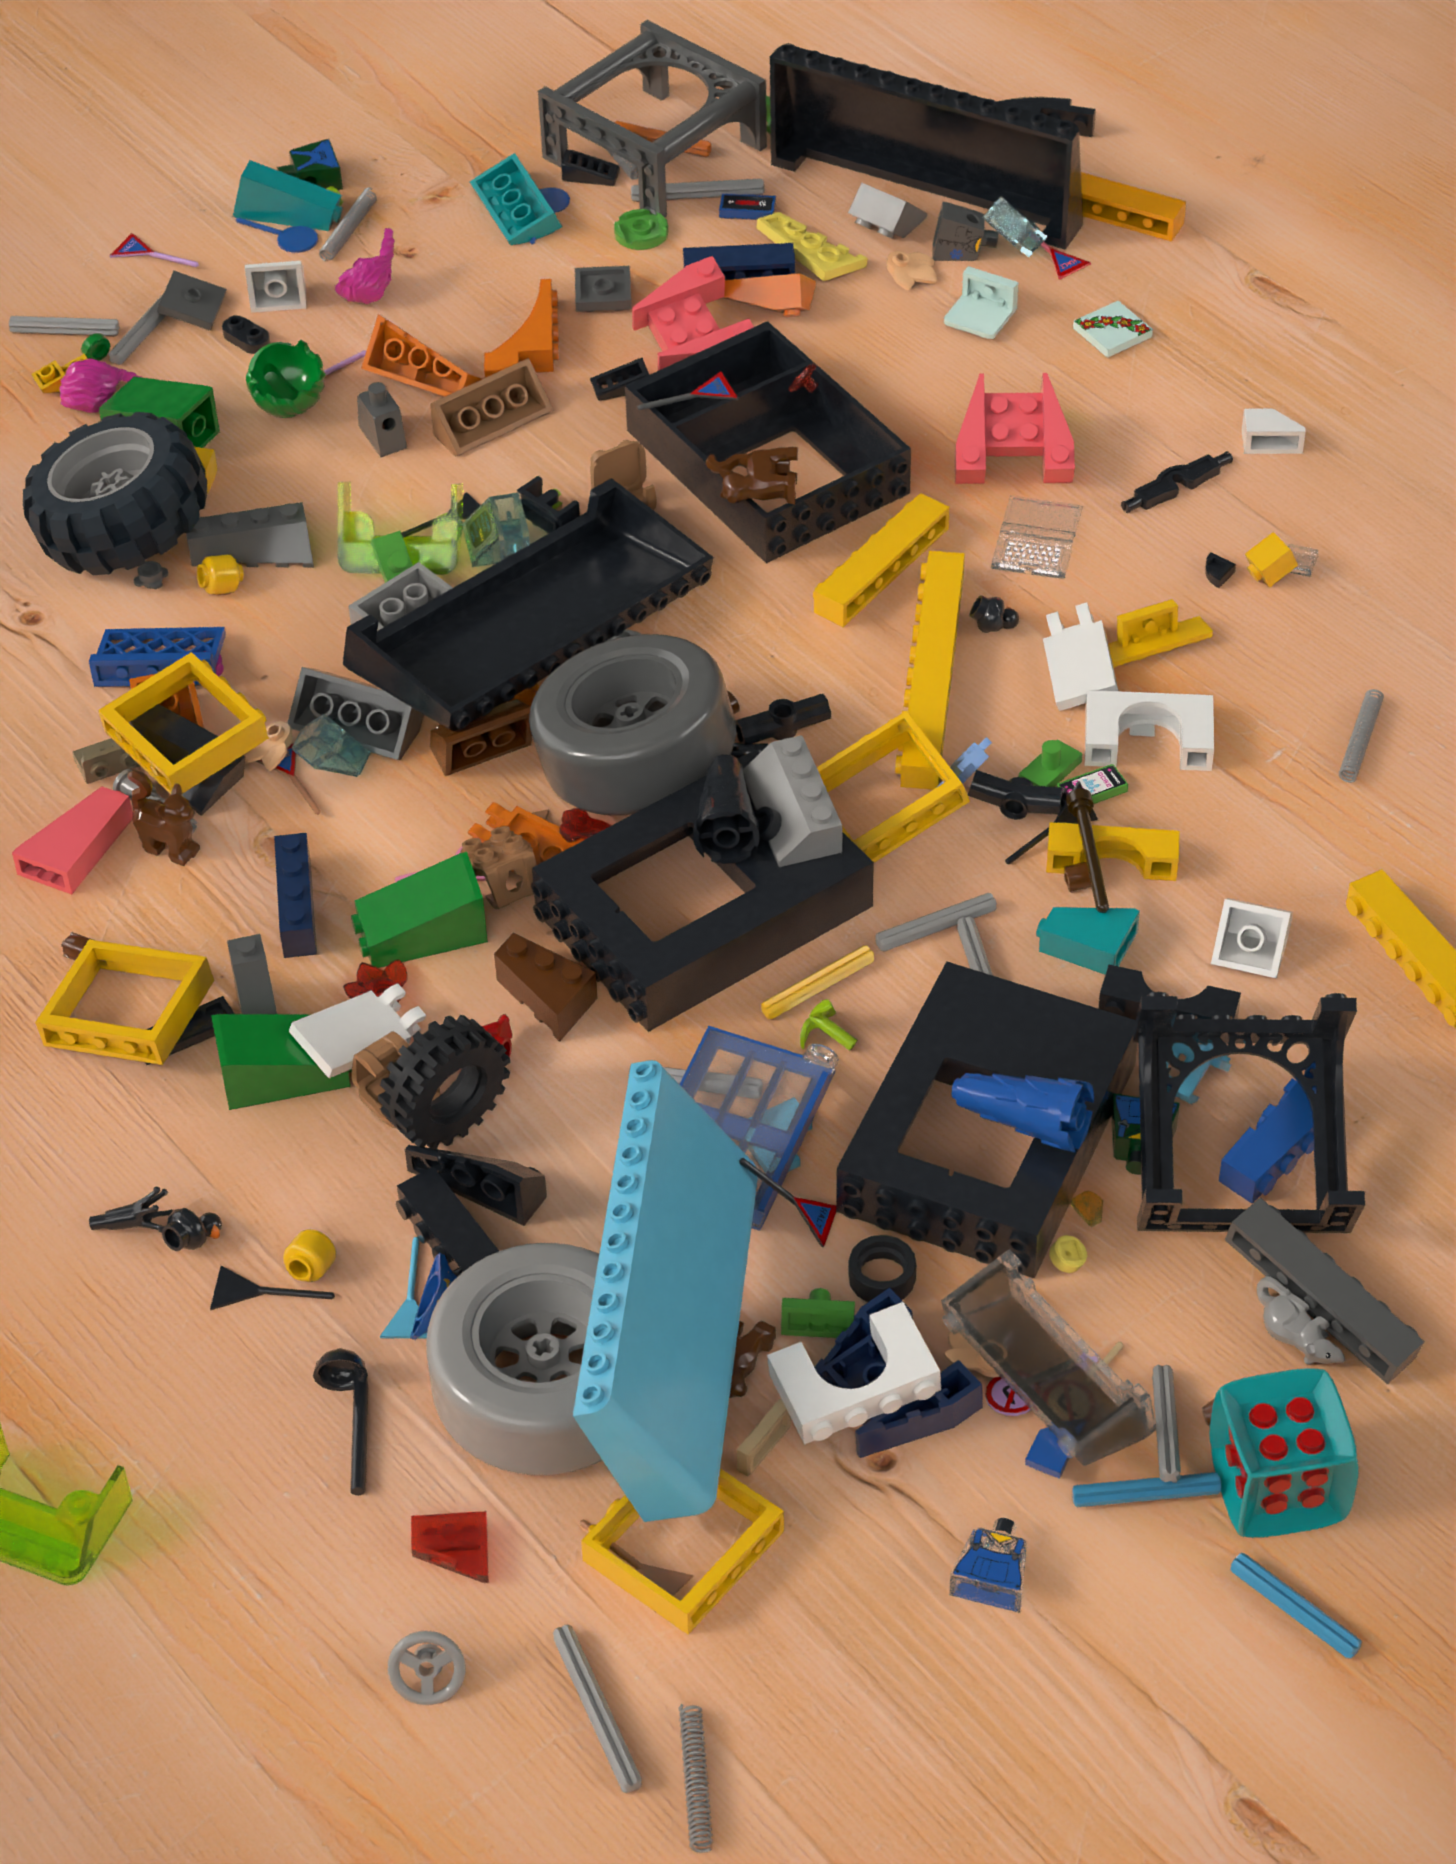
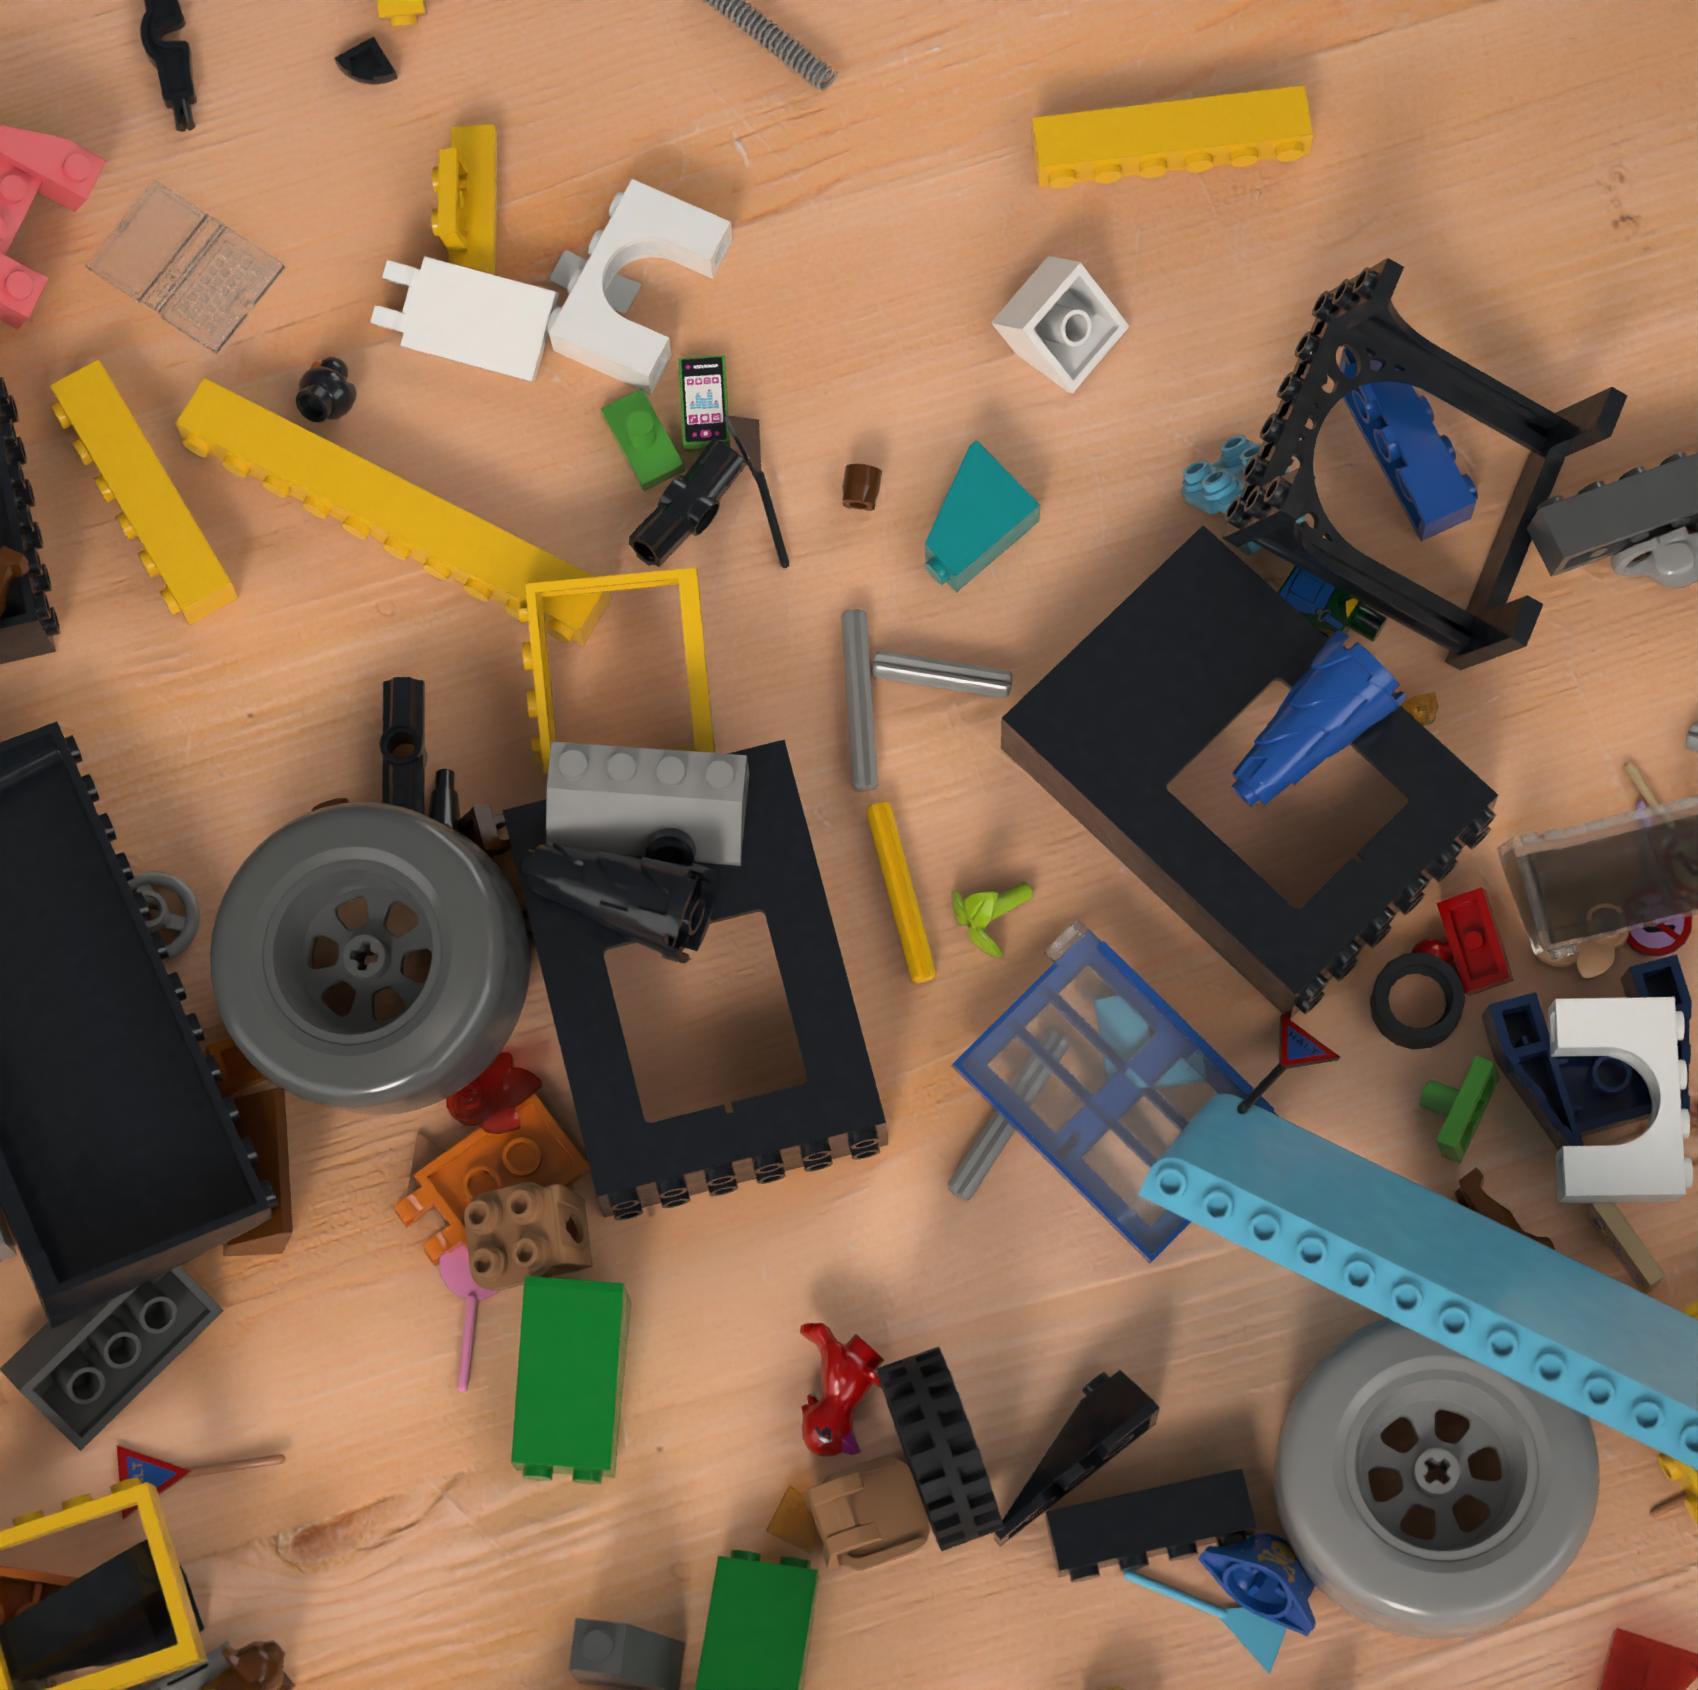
camera: 65 degrees left, 25 degrees up
(275, 748) = (122, 1523): light nougat plate -> none
(295, 895) = (447, 1542): dark blue brick -> none
(330, 747) = (169, 1400): clear light blue slope -> none
(347, 1028) = (765, 1538): white tile -> none
(376, 980) = (648, 1479): clear red plate -> none
(546, 982) = (765, 1250): reddish brown wedge -> none
(933, 1286) = (1471, 942): none -> red plate
(970, 760) = (616, 543): light blue piece -> none
(1068, 1254) = (1482, 762): light yellow tile -> none
(1080, 805) = (767, 433): dark brown piece -> none
(1125, 986) = (1098, 517): black arch -> none
(1149, 850) = (864, 378): yellow arch -> none

